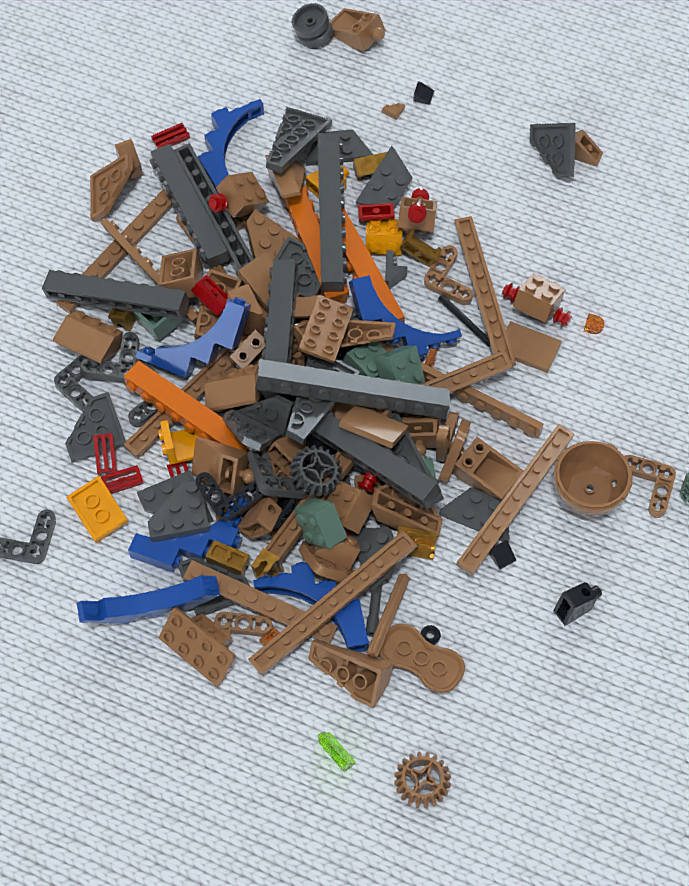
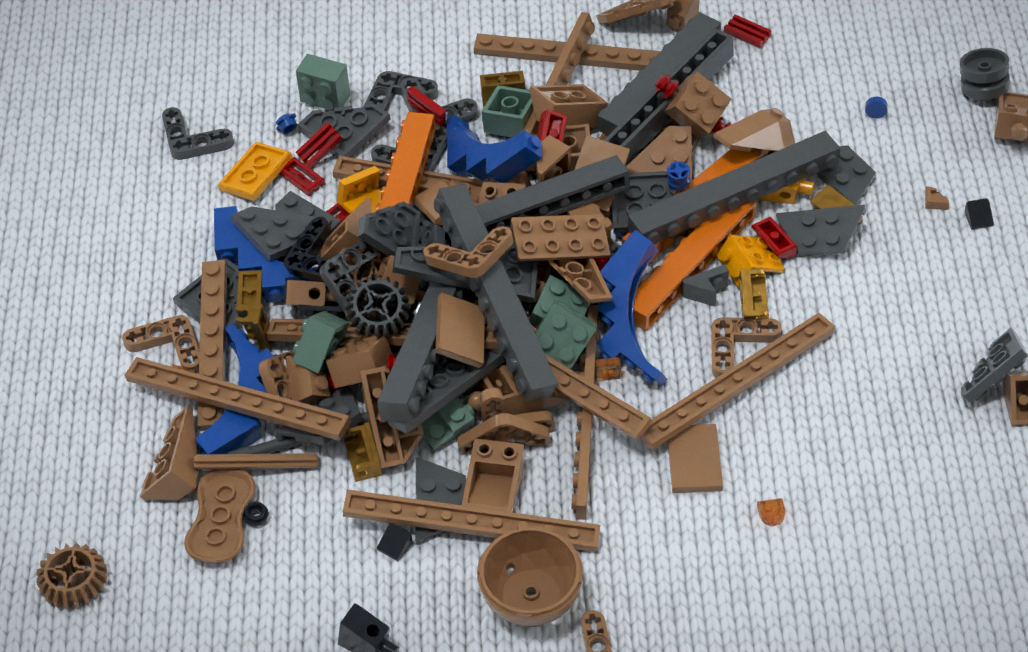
camera: 65 degrees right, 10 degrees down
(45, 423) = (323, 82): none -> sand green brick
(63, 467) = (286, 123): none -> blue plate
(88, 336) = (444, 70): medium nougat slope -> none
(116, 294) = (504, 65): dark grey brick -> none
(119, 363) = (426, 105): none -> red tile
(149, 604) = (150, 241): blue arch -> none
(199, 644) = (143, 310): medium nougat bracket -> none
(218, 140) = (767, 68): blue arch -> none
(294, 137) = (809, 118): dark grey wing -> none
(295, 233) = (680, 170): none -> blue wheel
(296, 99) = (876, 107): none -> blue tile
(333, 383) = (472, 263): none -> medium nougat beam
(336, 751) = (73, 484): clear neon green slope -> none
(417, 212) = (796, 270): medium nougat brick -> none
(464, 319) = (694, 372): black bar -> none
(539, 299) = (760, 436): medium nougat brick -> none

